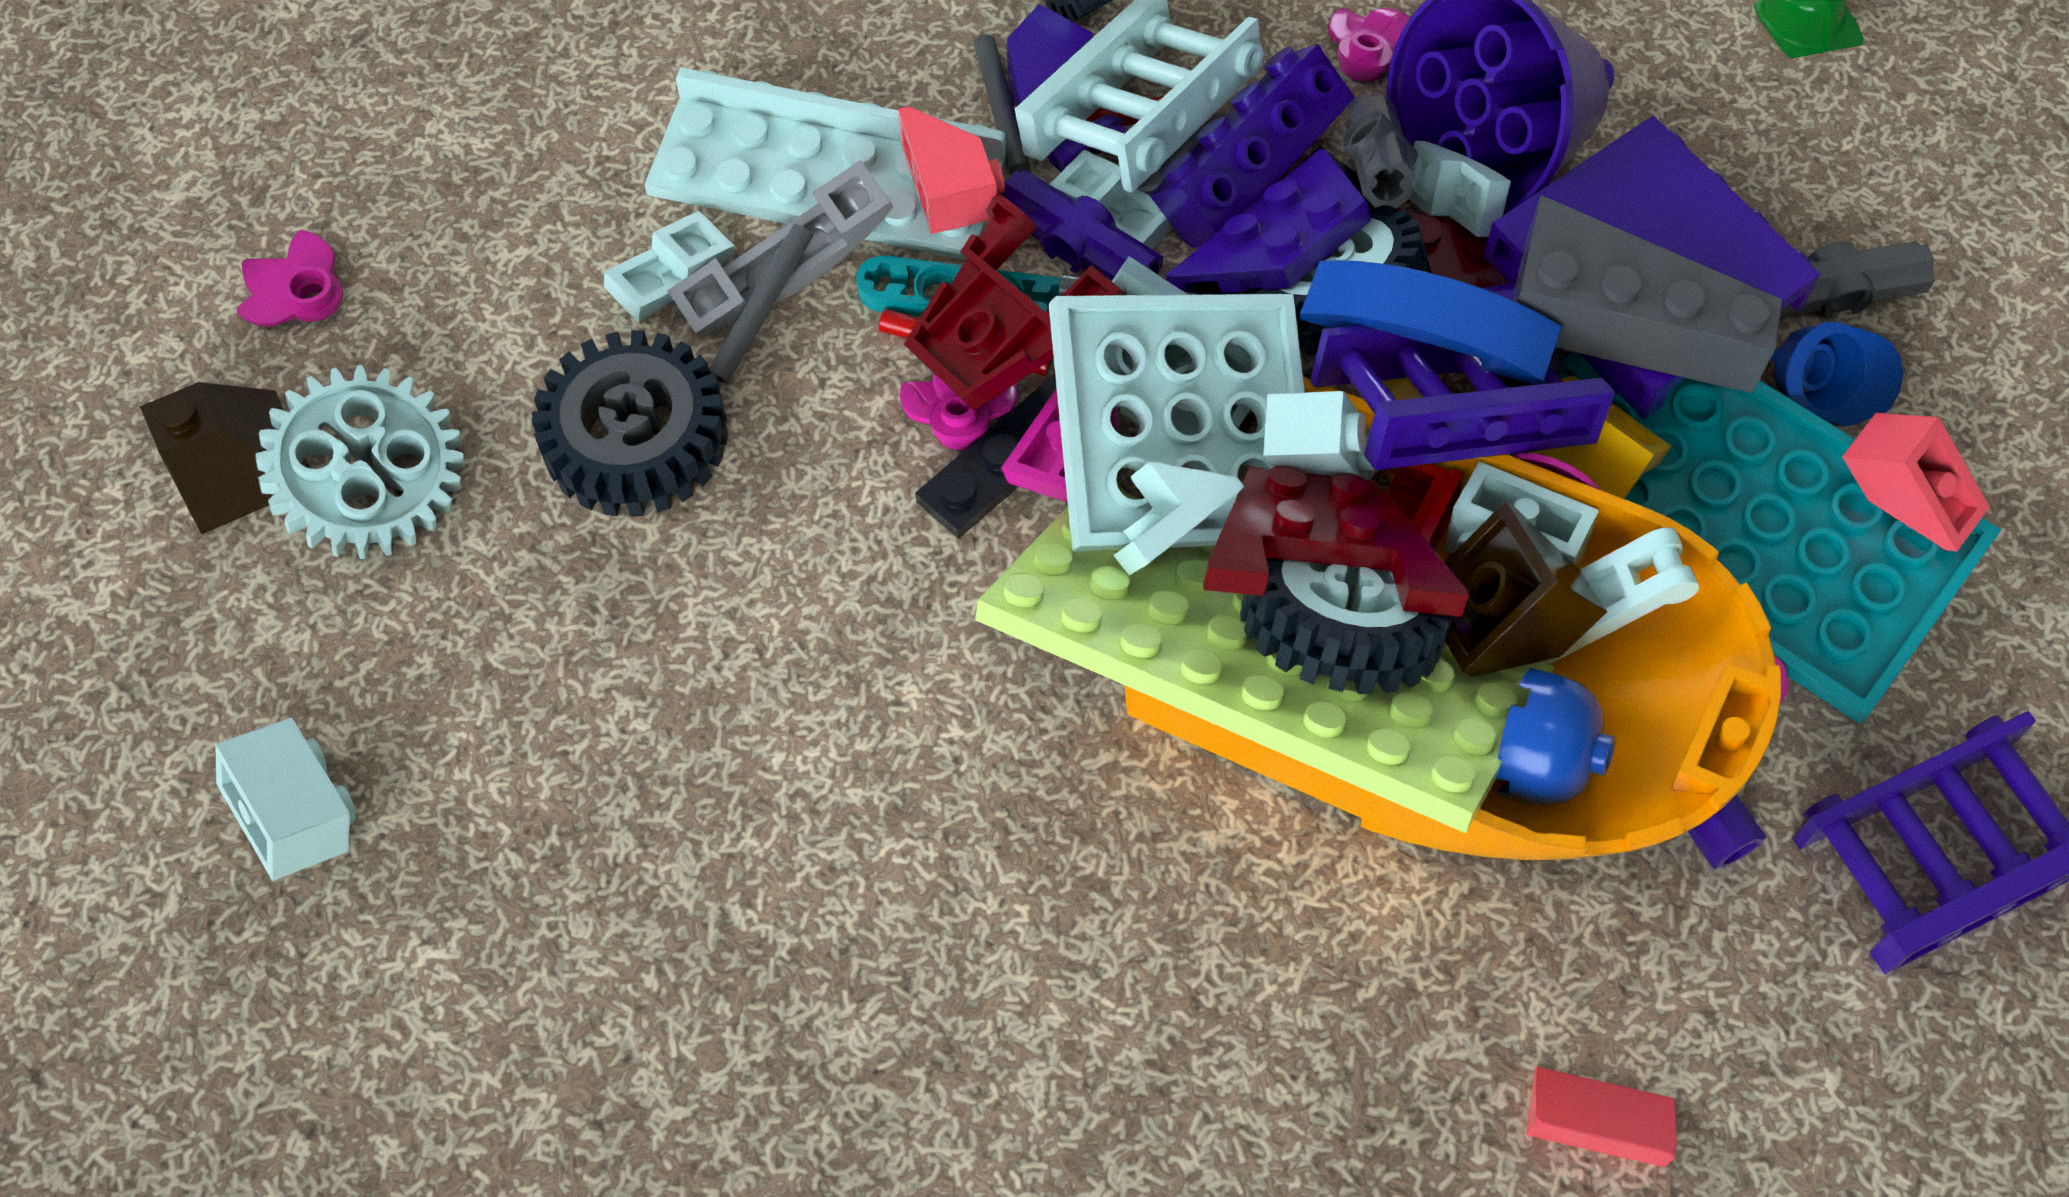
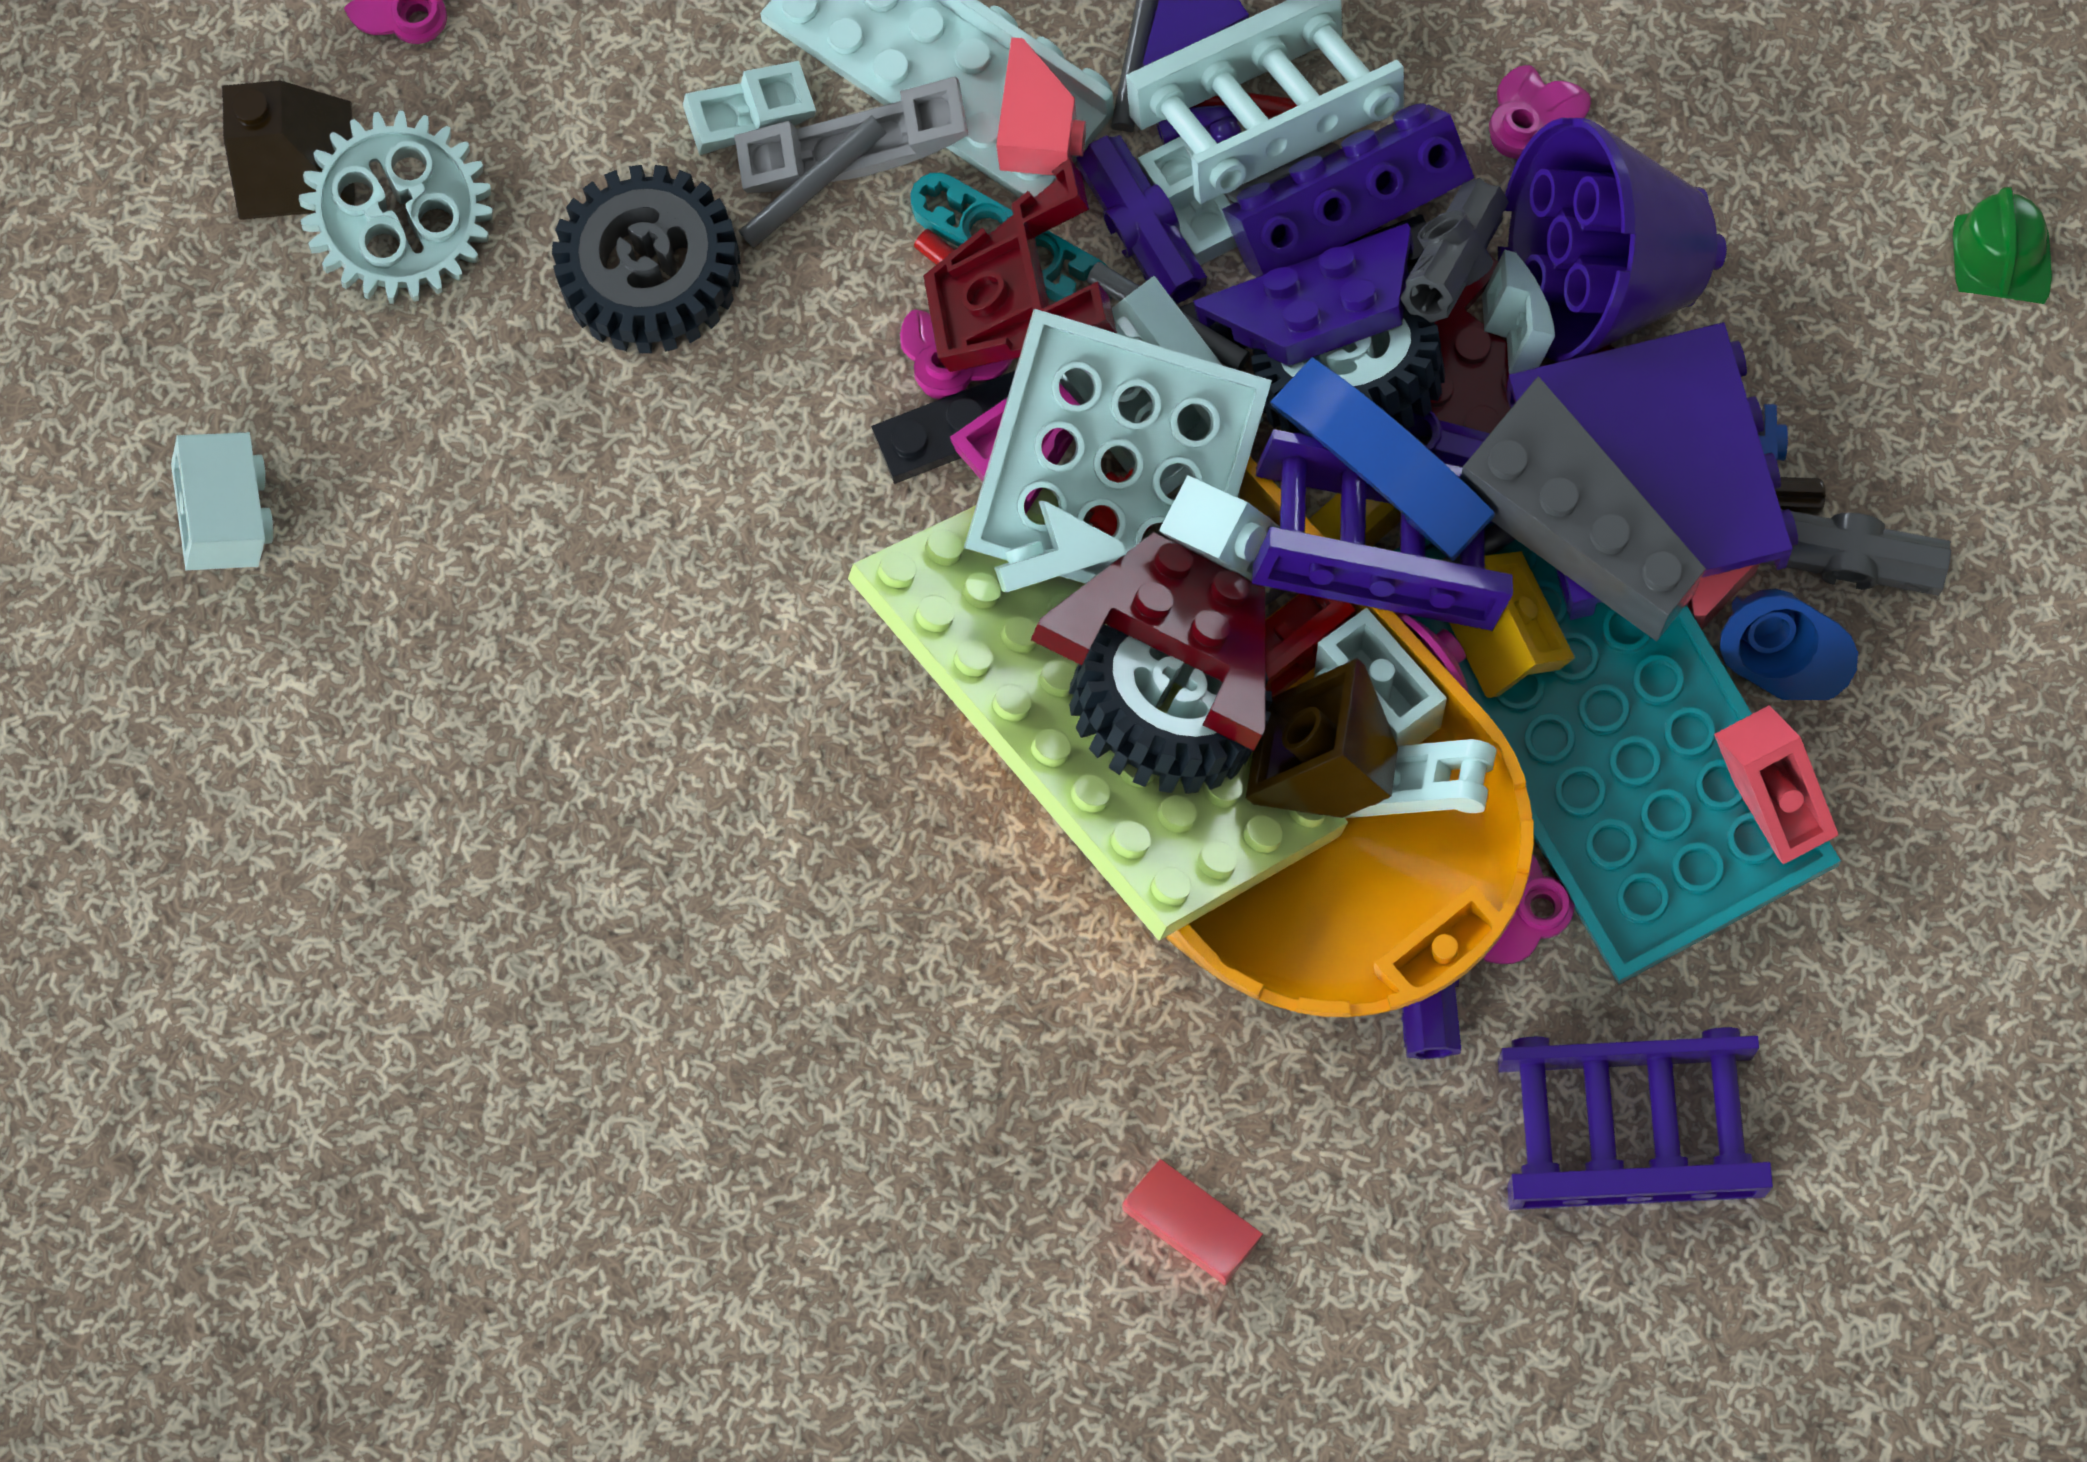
camera: 30 degrees right, 10 degrees up
(1553, 741) = (1290, 889): blue cylinder -> none

